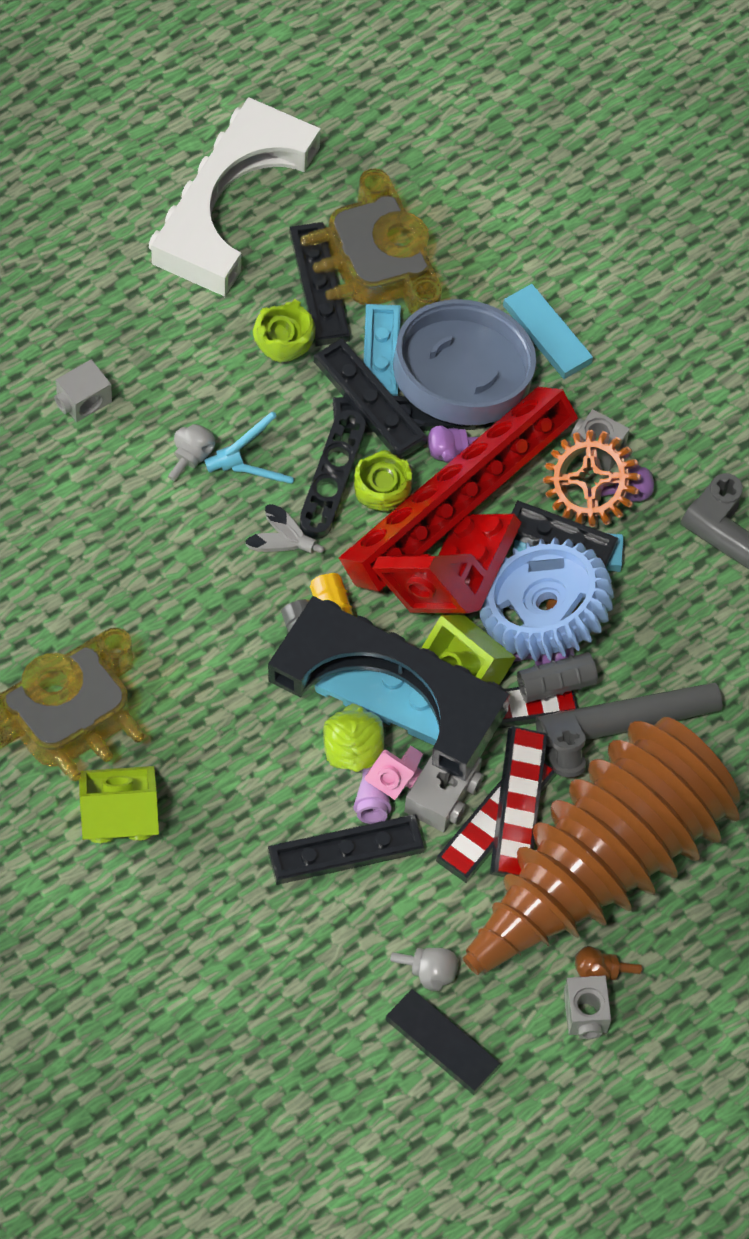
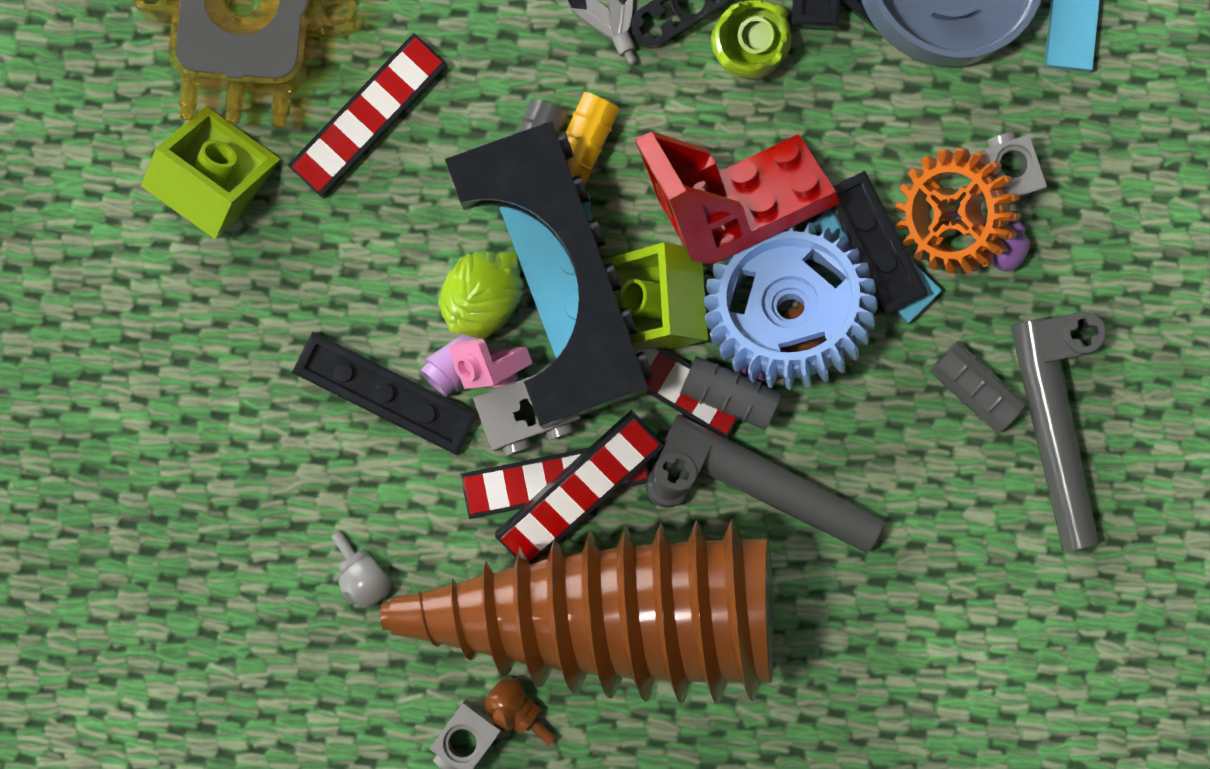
camera: 45 degrees right, 25 degrees up
(187, 699) = (368, 115): none -> tile
(442, 1041) = (309, 656): black tile -> none
(447, 443) = (858, 49): medium lavender piece -> none
(462, 484) = (828, 107): red brick -> none
(694, 569) = (977, 387): none -> dark grey axle

